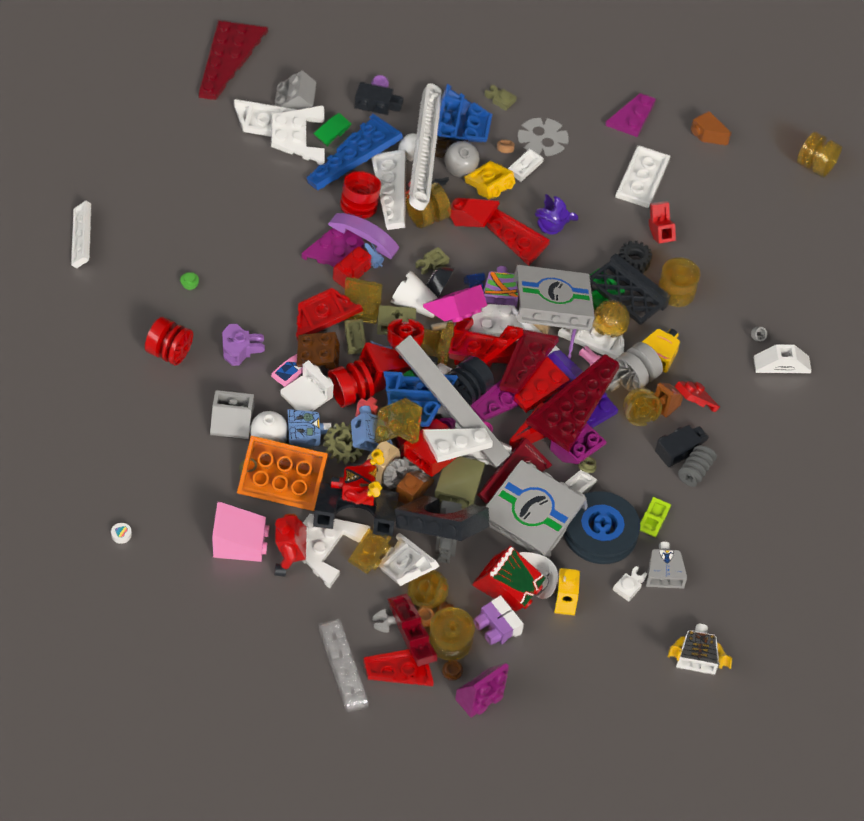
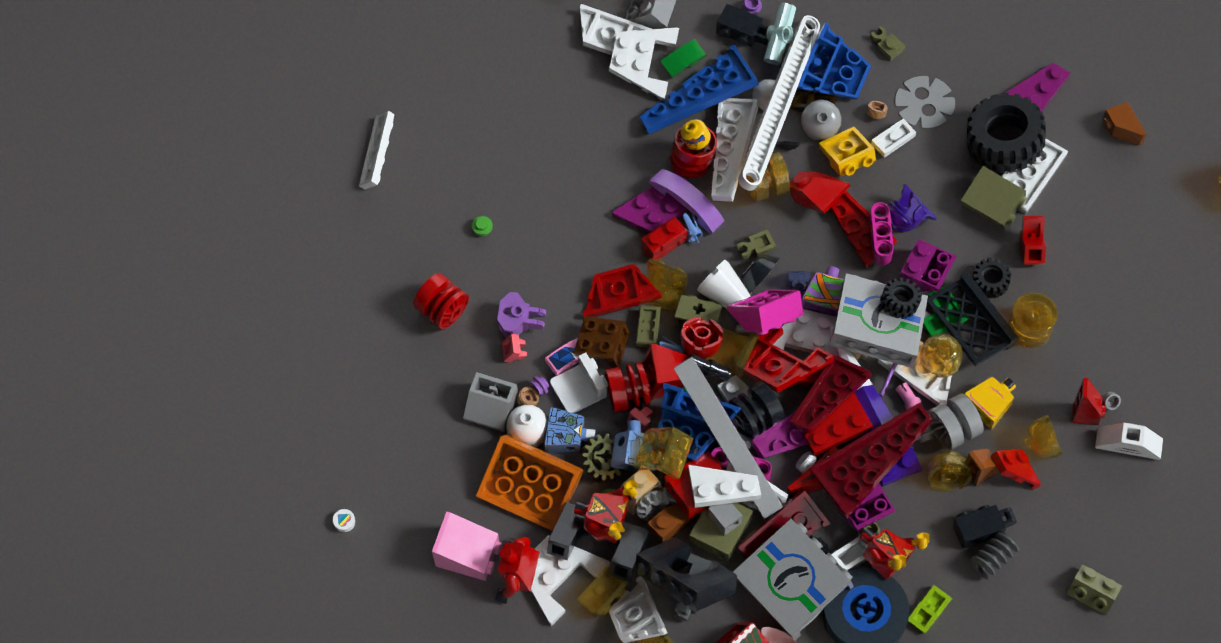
camera: 20 degrees right, 10 degrees up
(240, 371) = (511, 348): none -> coral tile
(263, 405) = (527, 396): none -> medium nougat tile
(272, 396) = (539, 385): none -> medium lavender plate
(362, 177) = (695, 134): none -> yellow head
(410, 99) = (779, 34): none -> light aqua piece
(463, 468) = (725, 517): none -> light grey brick
(519, 418) = (805, 462): none -> white tile
(536, 234) = (879, 242): none -> dark pink beam
(568, 275) = (898, 307): none -> black tyre
(580, 254) = (927, 266): none -> magenta slope
(609, 475) = (889, 552): none -> red torso
(621, 161) = (1006, 111): none -> black tyre
(621, 196) = (994, 198): none -> olive brick
(713, 369) = (1043, 438): none -> clear yellow cylinder
(741, 338) = (1088, 405): none -> red slope
(786, 479) = (1094, 589): none -> olive bracket

